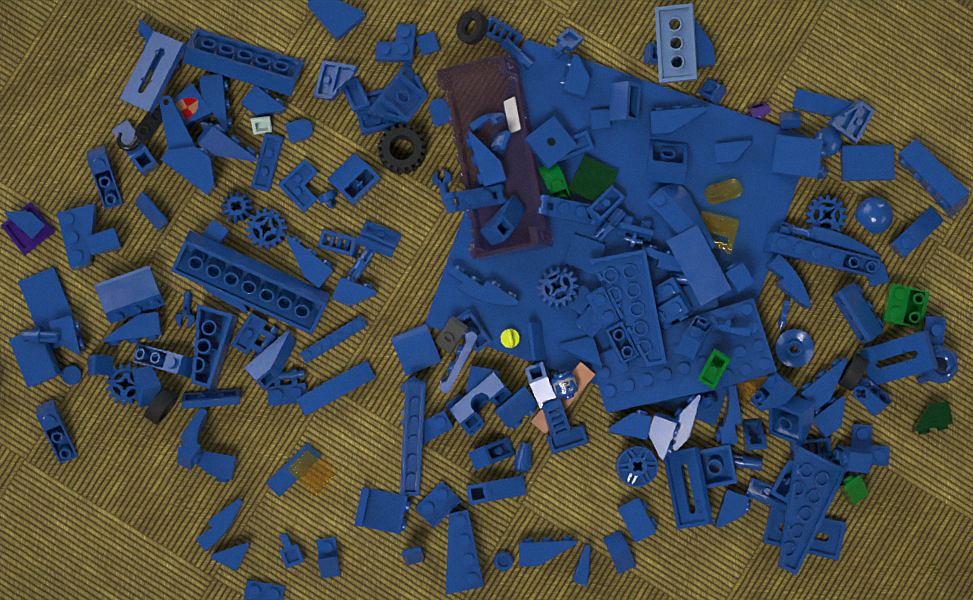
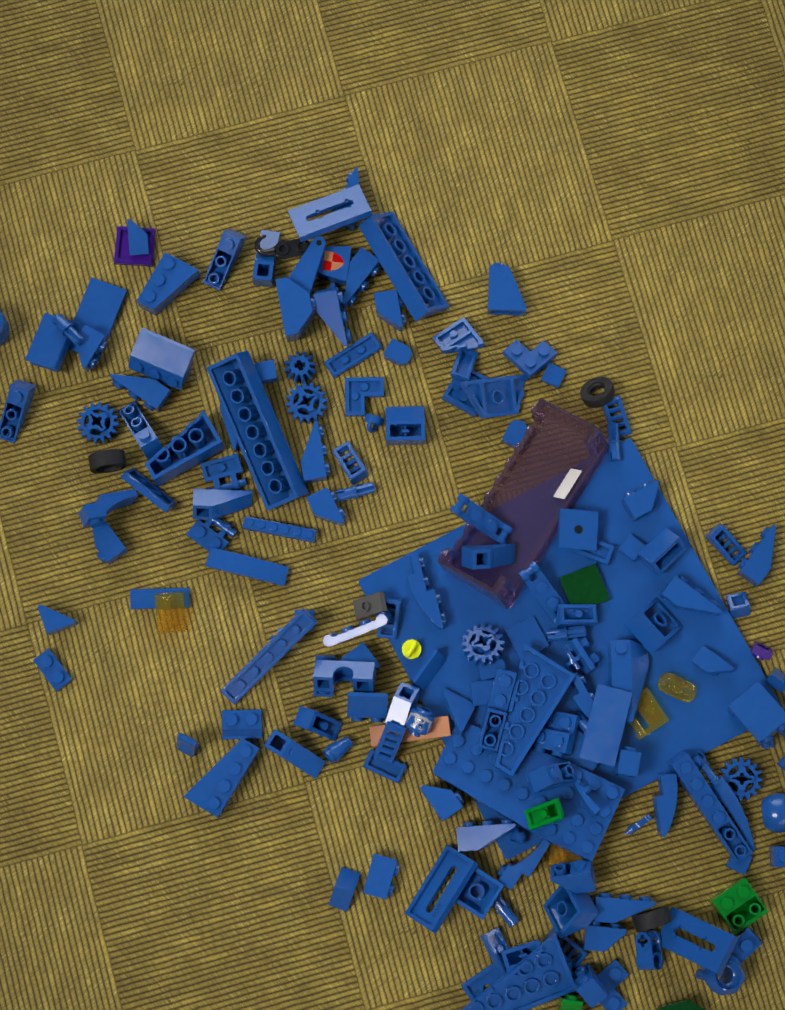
camera: 45 degrees right, 5 degrees down
(71, 375) = (65, 380): blue tile -> none
(100, 365) = (92, 391): blue slope -> none
(103, 242) = (179, 304): blue slope -> none
(146, 385) = (111, 435): blue slope -> none
(151, 211) = (235, 314): blue slope -> none
(186, 311) = (190, 410): blue bar -> none
(220, 525) = (68, 589): blue slope -> none
(261, 125) = (374, 324): light aqua slope -> none
(291, 553) = (98, 659): blue plate -> none
(328, 557) = (123, 688): blue slope -> none
(378, 238) = (382, 485): blue plate -> none
(382, 511) = (196, 690): blue panel -> none
(402, 133) = (461, 419): black tyre -> none
(415, 349) = (333, 593): blue slope -> none
(436, 426) = (294, 664): blue slope -> none
(443, 186) = (466, 491): blue bar -> none
(489, 166) = (514, 506): blue slope -> none
(493, 119) = (538, 467): blue slope -> none
(501, 142) = (540, 496): blue slope -> none
(503, 561) = (250, 813): blue tile -> none
(537, 553) = (282, 831): blue slope -> none
(555, 182) = (553, 563): green slope -> none
(567, 41) = (660, 466): blue plate -> none
(582, 569) = (301, 877): blue slope -> none
(624, 466) = (407, 828): blue wheel -> none
(661, 433) = (460, 826): slope -> none
(687, 51) = (744, 555): medium blue plate -> none
(731, 508) = (461, 936): blue slope -> none
(753, 435) = (529, 895): blue slope -> none
(804, 346) = (633, 857): blue dish -> none
(858, 313) = (697, 876): blue slope -> none

